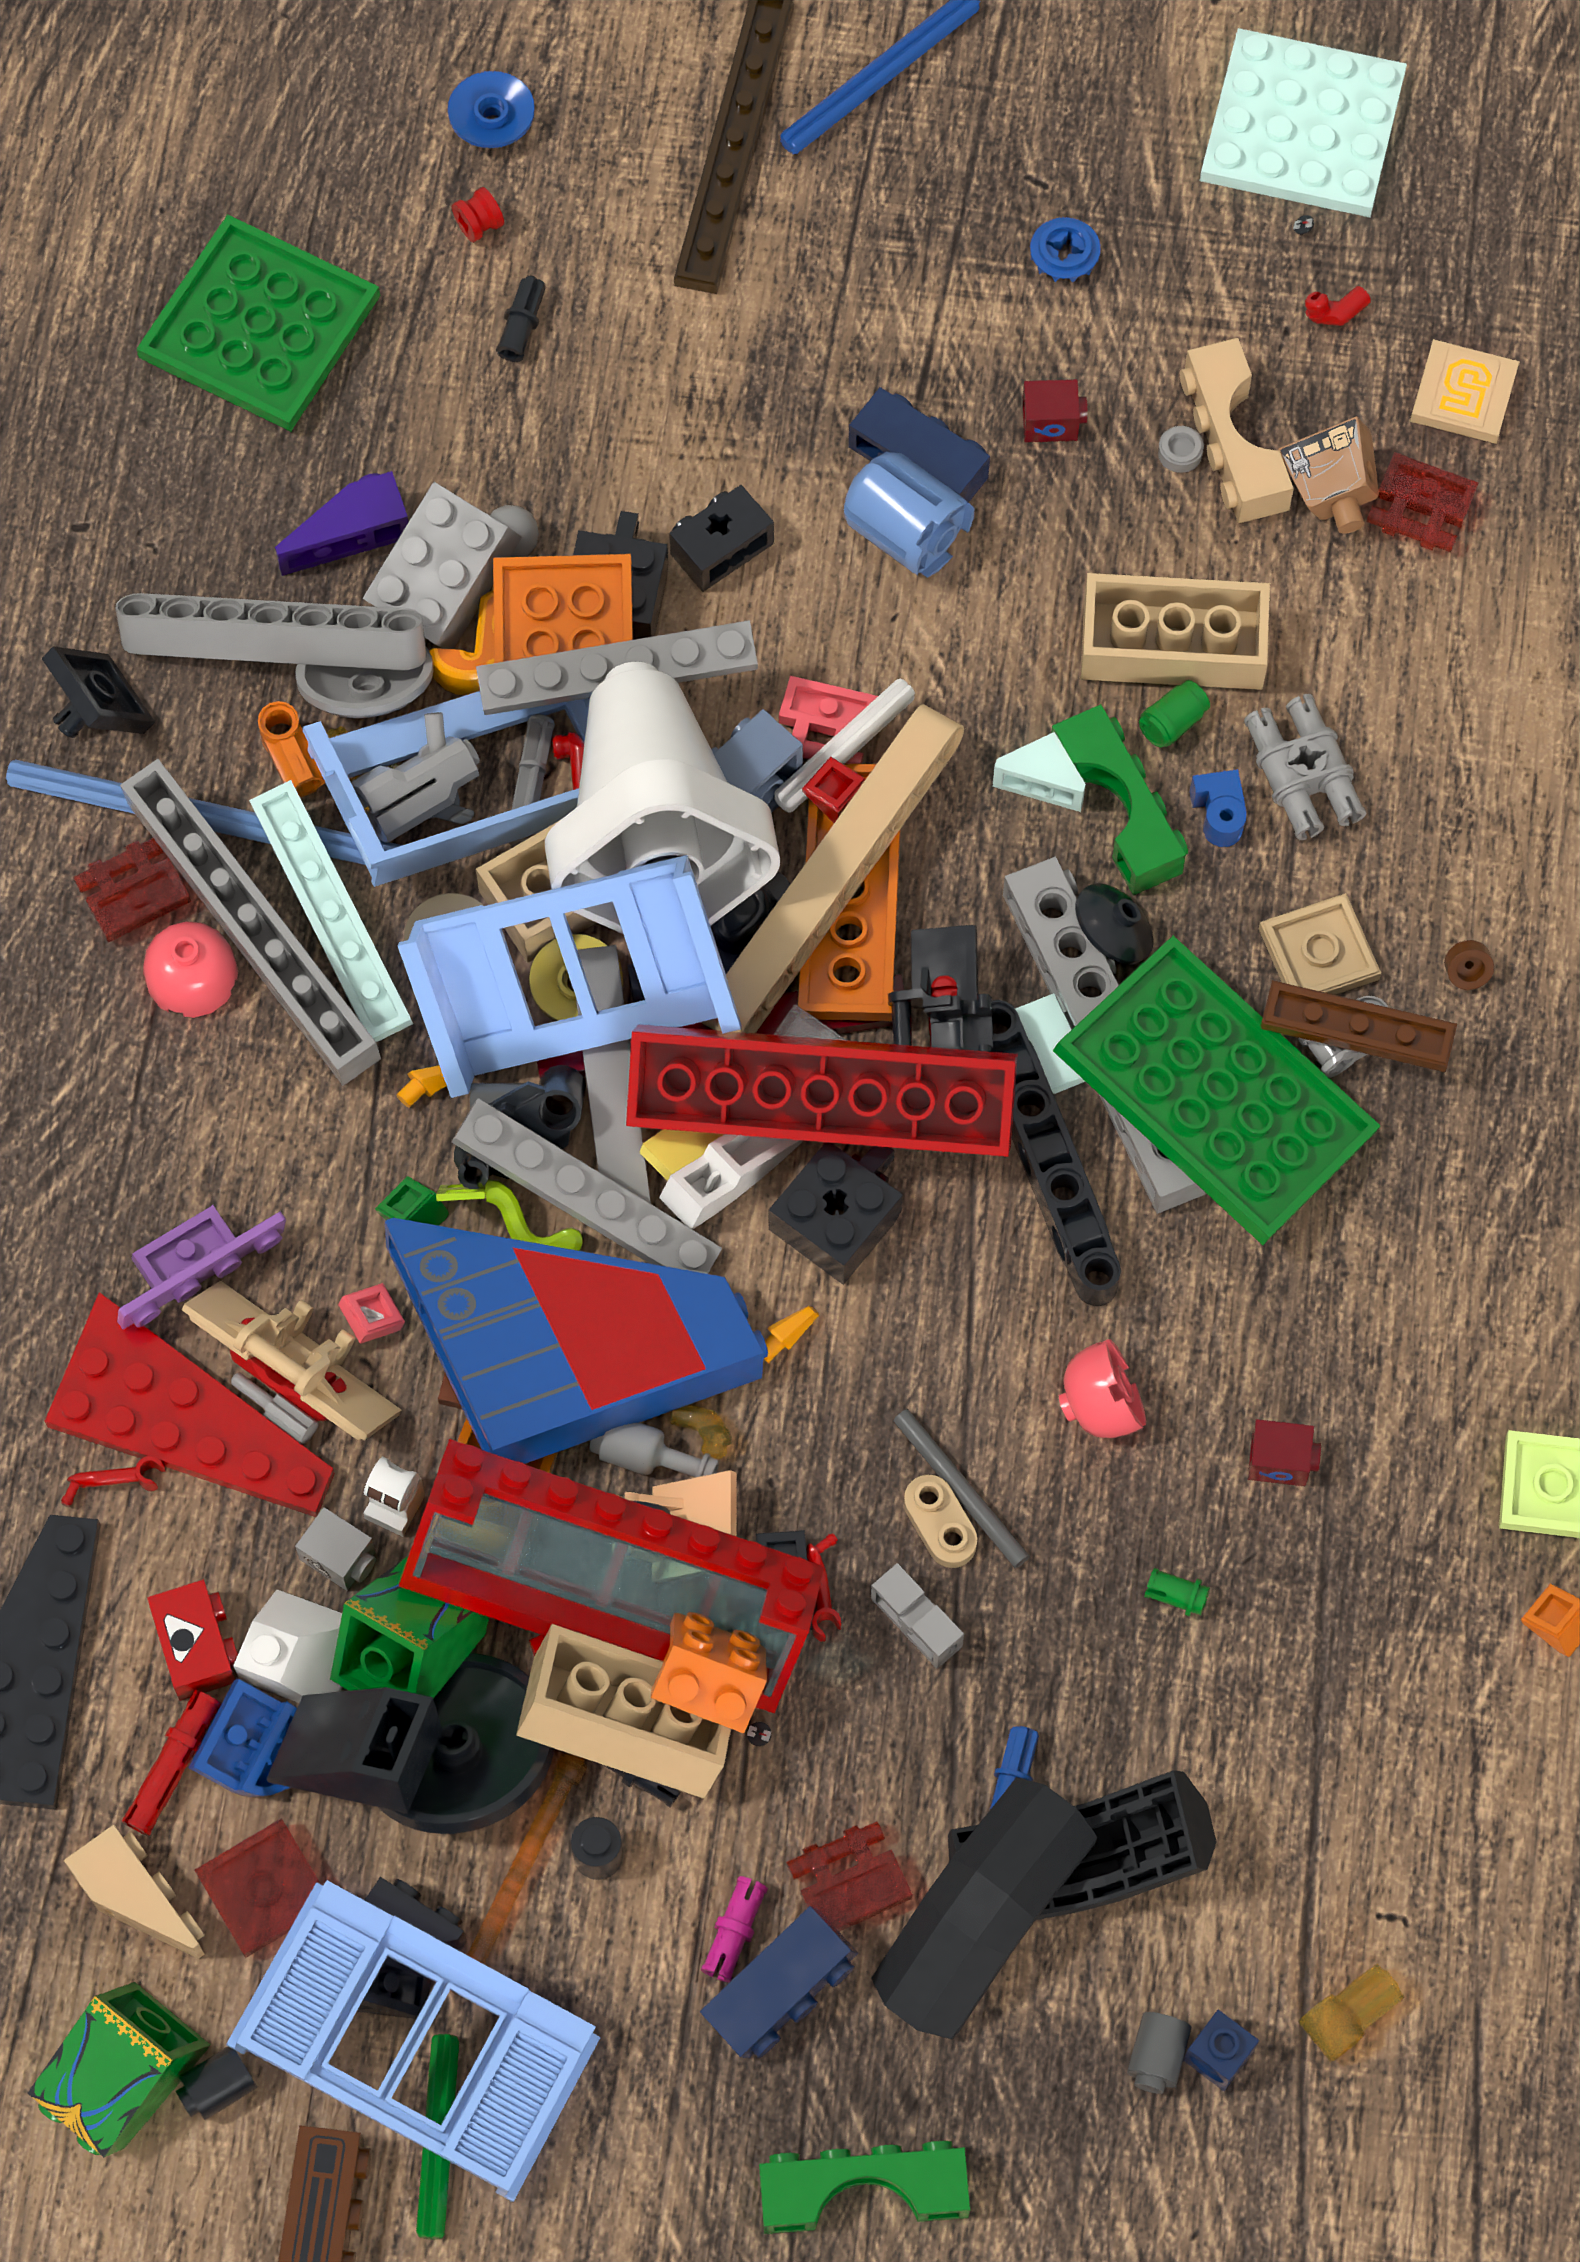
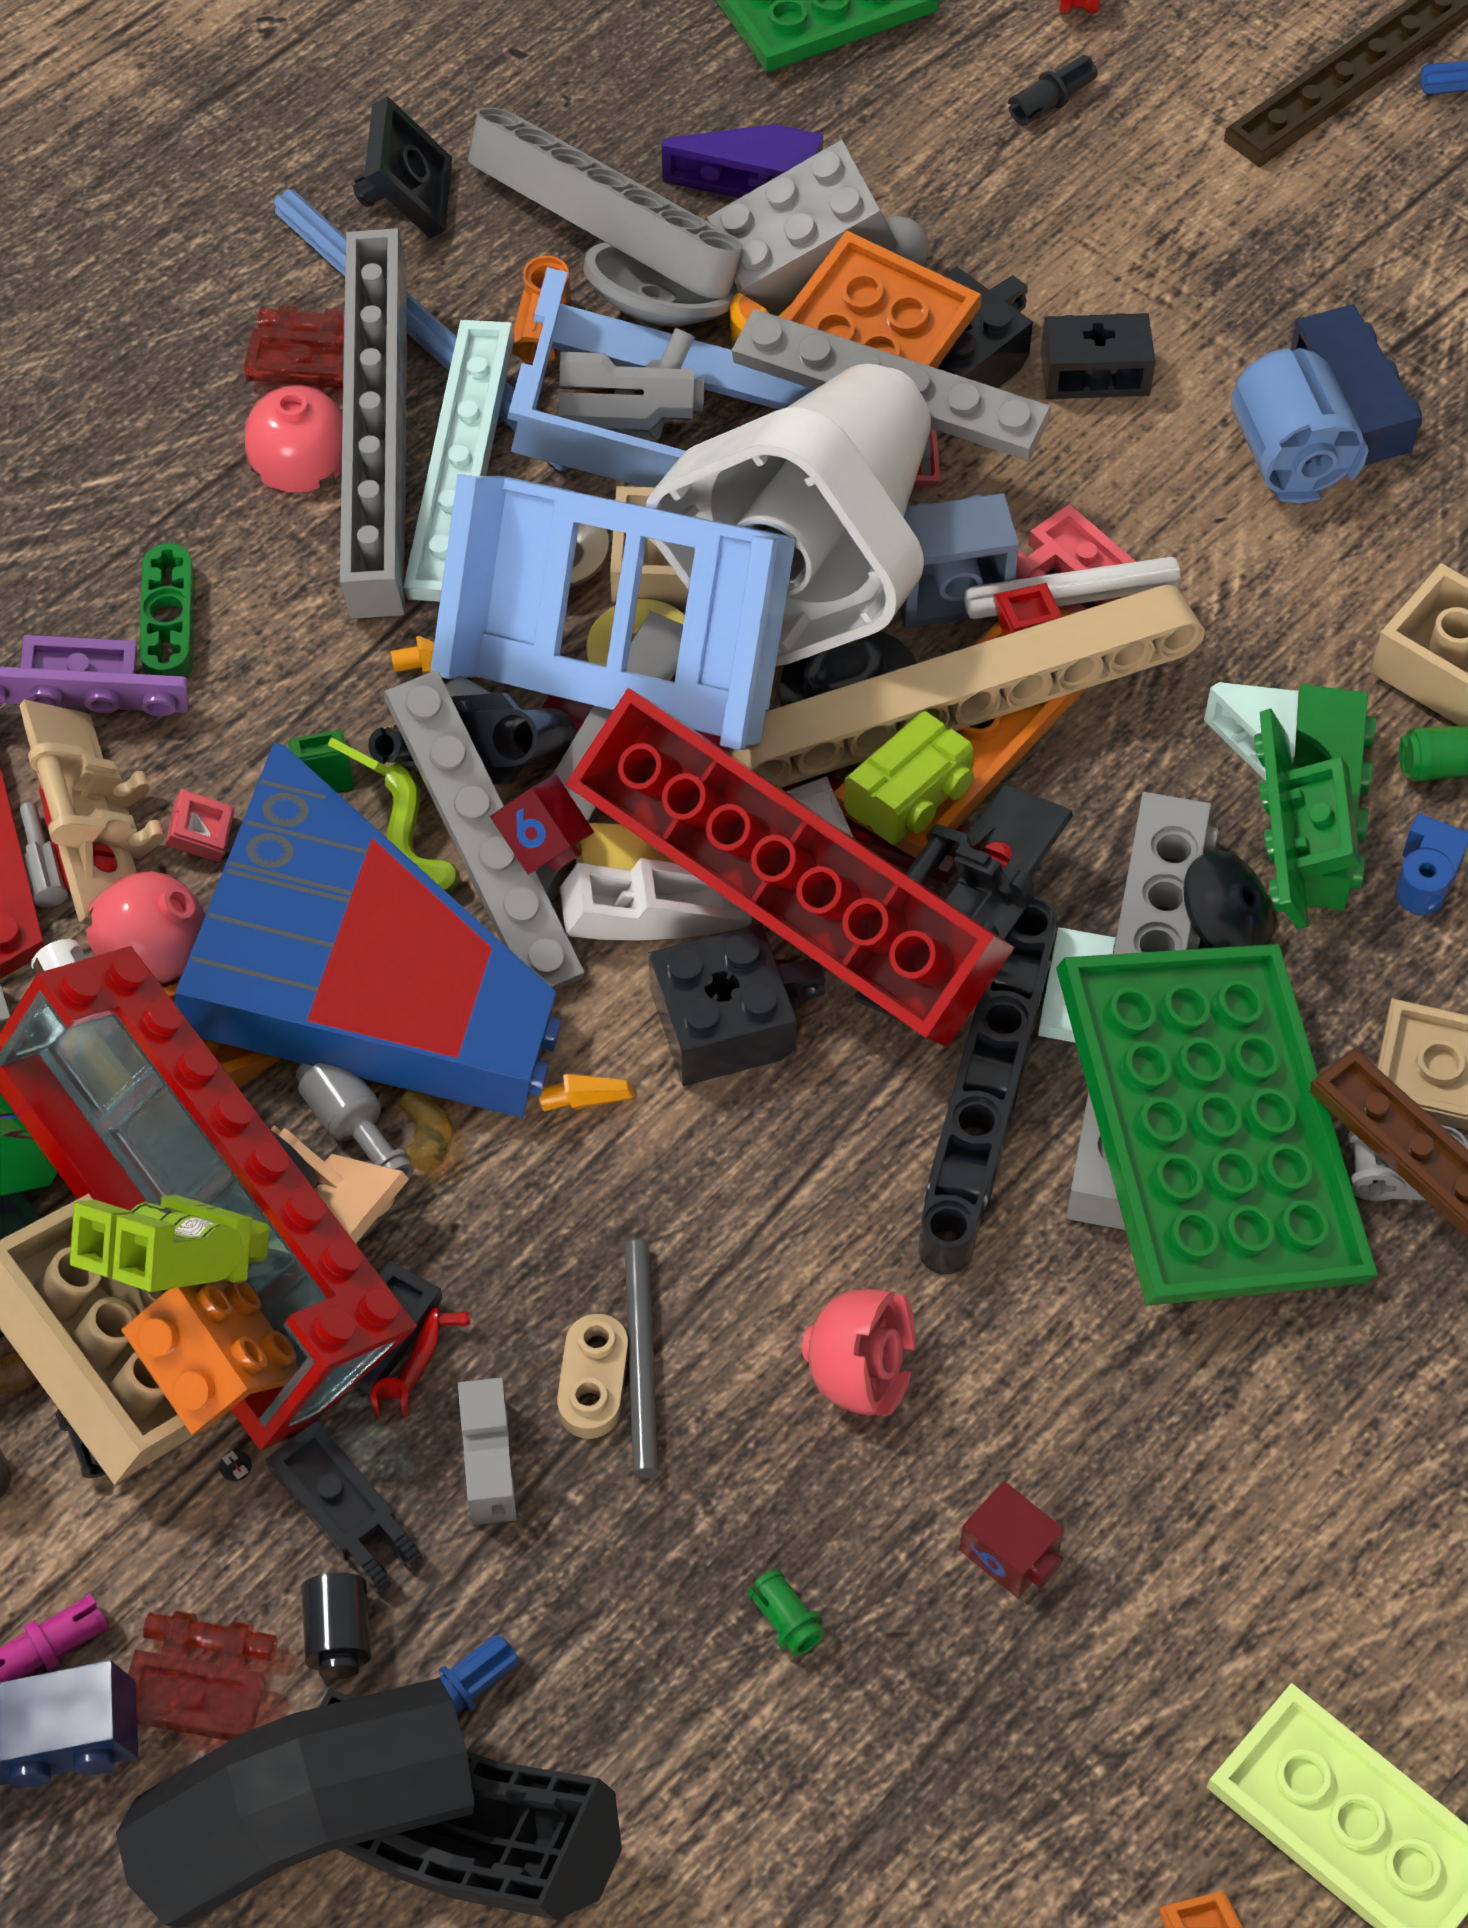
camera: 35 degrees right, 10 degrees down
(199, 1134) = (157, 595): none -> green beam
(411, 1413) = (153, 917): none -> coral cylinder
(630, 1164) = (543, 826): none -> dark red brick
(639, 1620) = (166, 1243): none -> lime hips
(849, 969) = (910, 778): none -> lime brick
(850, 1711) = (341, 1502): none -> black hinge
(910, 1789) = (336, 1624): none -> black brick
(1134, 828) = (1309, 819): none -> green bracket

